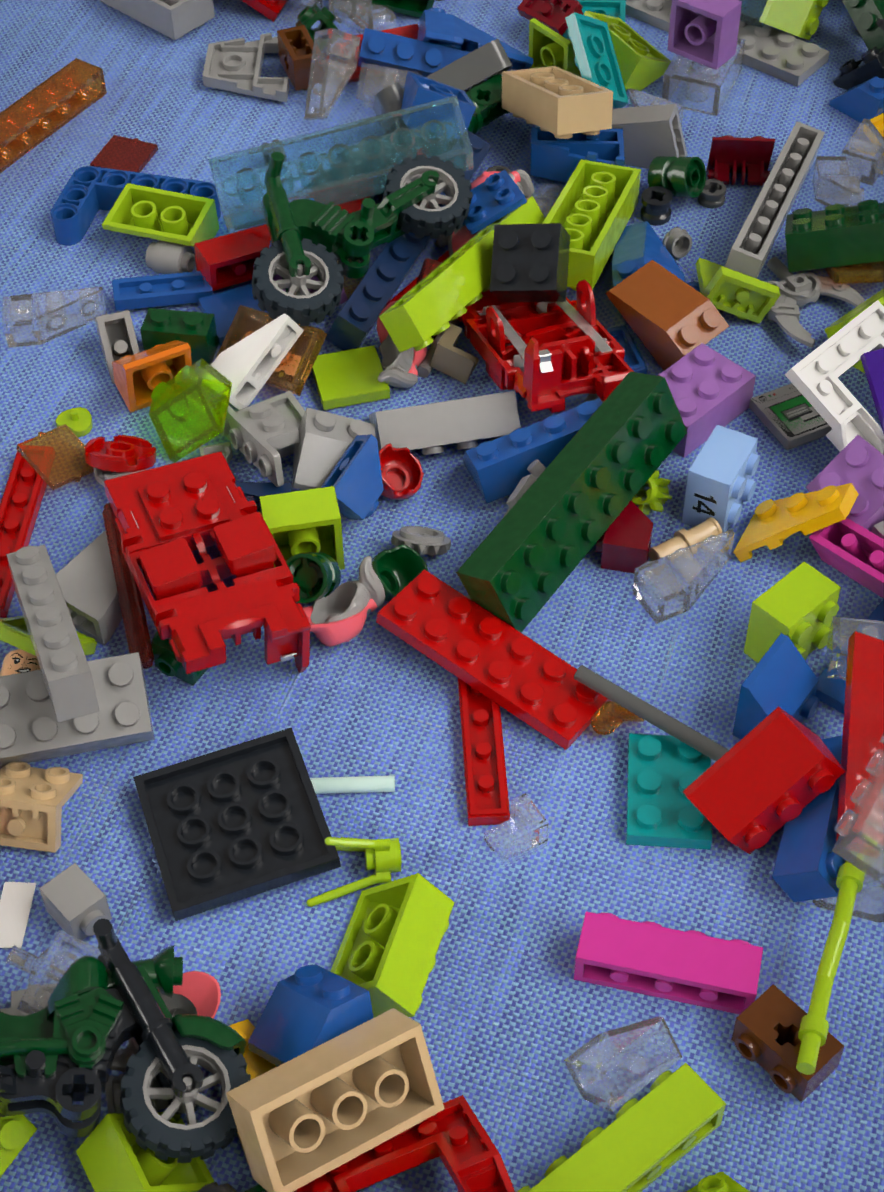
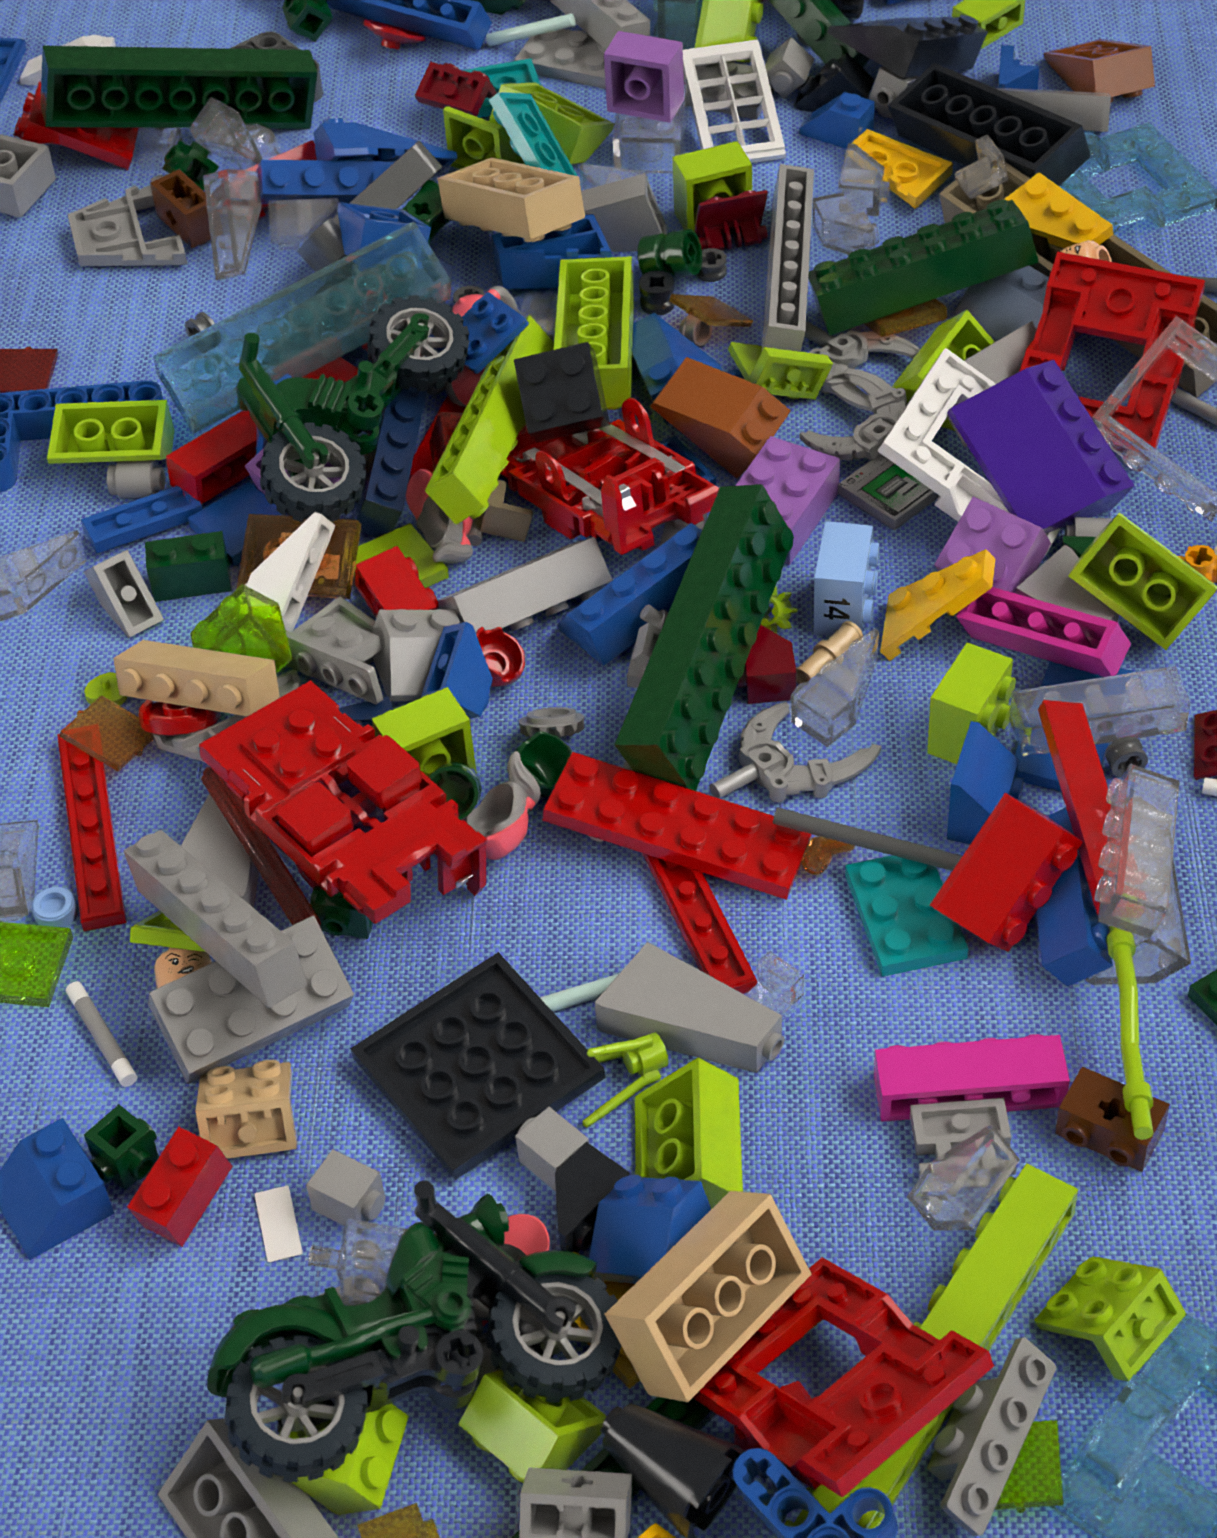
camera: 15 degrees left, 0 degrees up
(140, 427) = (196, 677): none -> tan brick
(141, 372) = (178, 608): orange slope -> none
(267, 919) = (547, 1144): none -> light grey brick
(269, 962) = (579, 1189): none -> black slope
(334, 389) = (393, 583): none -> red brick
(435, 828) = (688, 1012): none -> light grey slope
(600, 628) = (774, 766): none -> light grey bar
(631, 1001) = (947, 1124): none -> light grey plate
(695, 229) = (711, 310): none -> clear orange piece
(733, 116) = (707, 174): none -> lime brick
(775, 110) = (727, 53): none -> white piece
(775, 370) = (887, 407): none -> light grey bar
(836, 48) = (788, 67): none -> light grey brick

